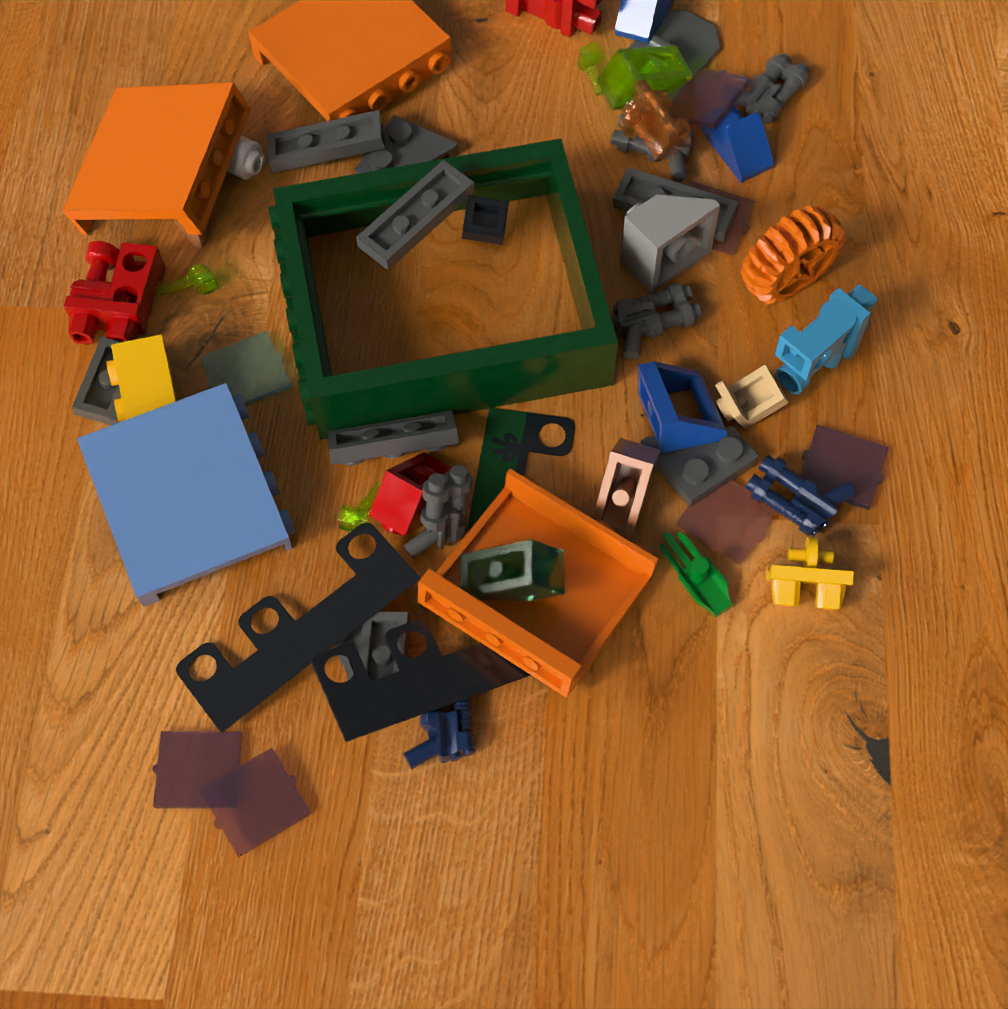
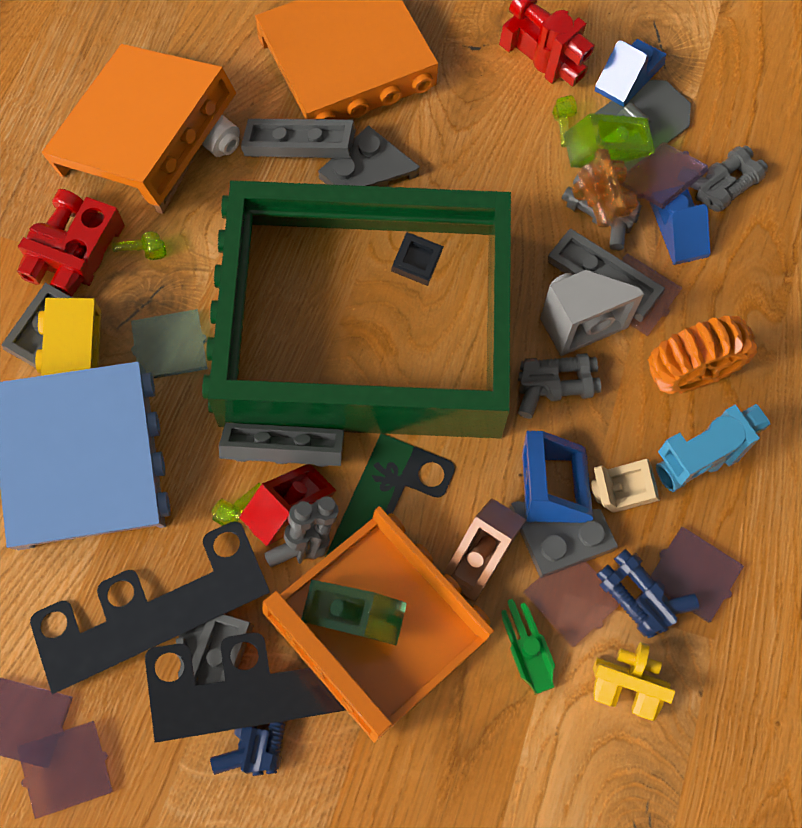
camera: 10 degrees right, 5 degrees up
(415, 214) = (352, 239): dark grey plate -> none

